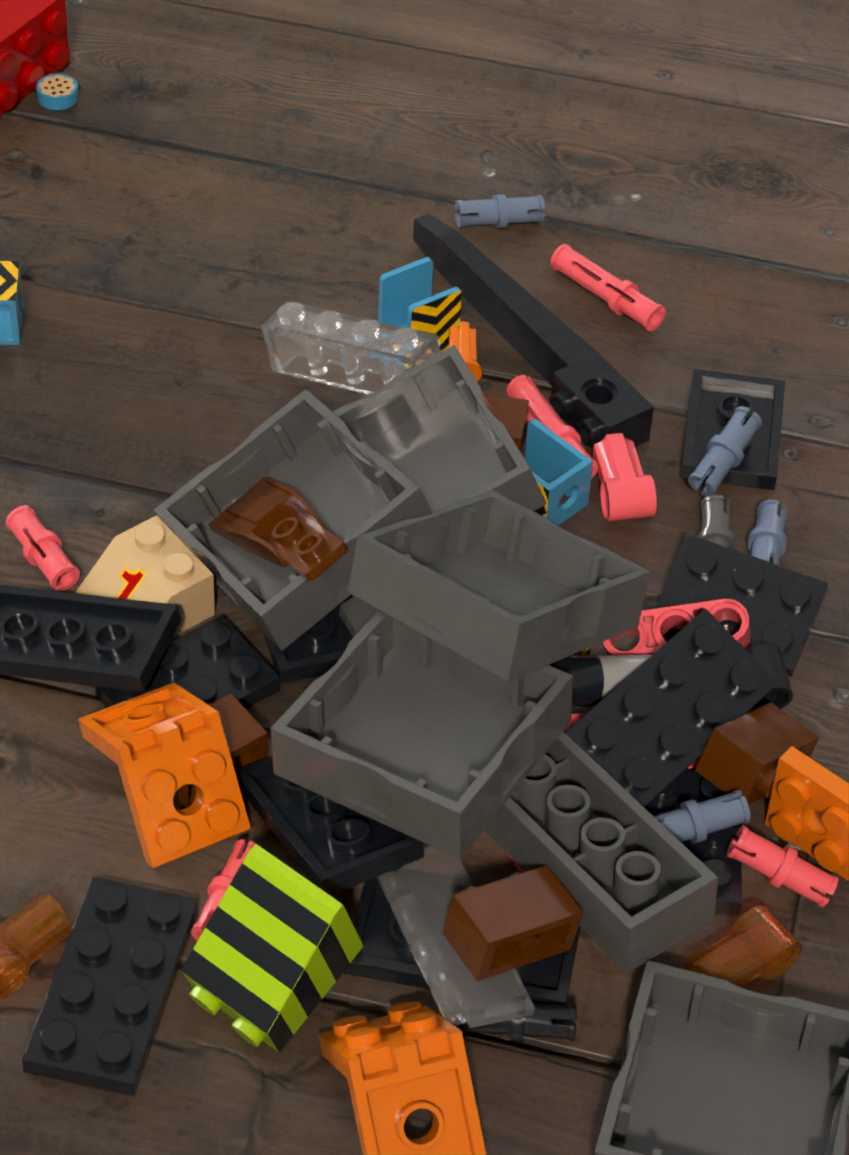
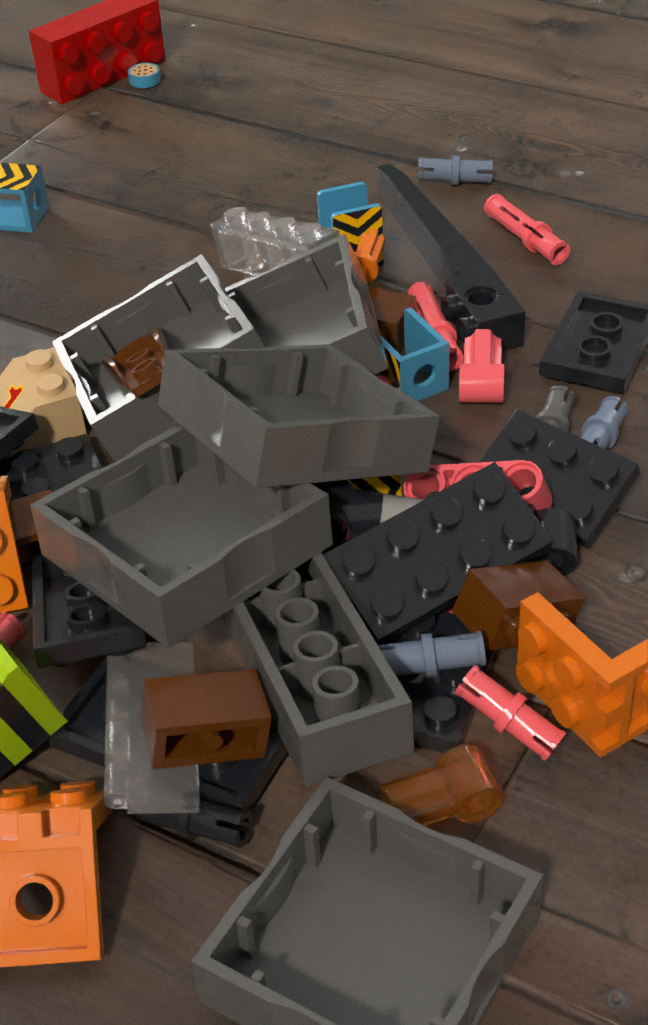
camera: 20 degrees right, 5 degrees down
(725, 451) = (579, 350): sand blue pin -> none

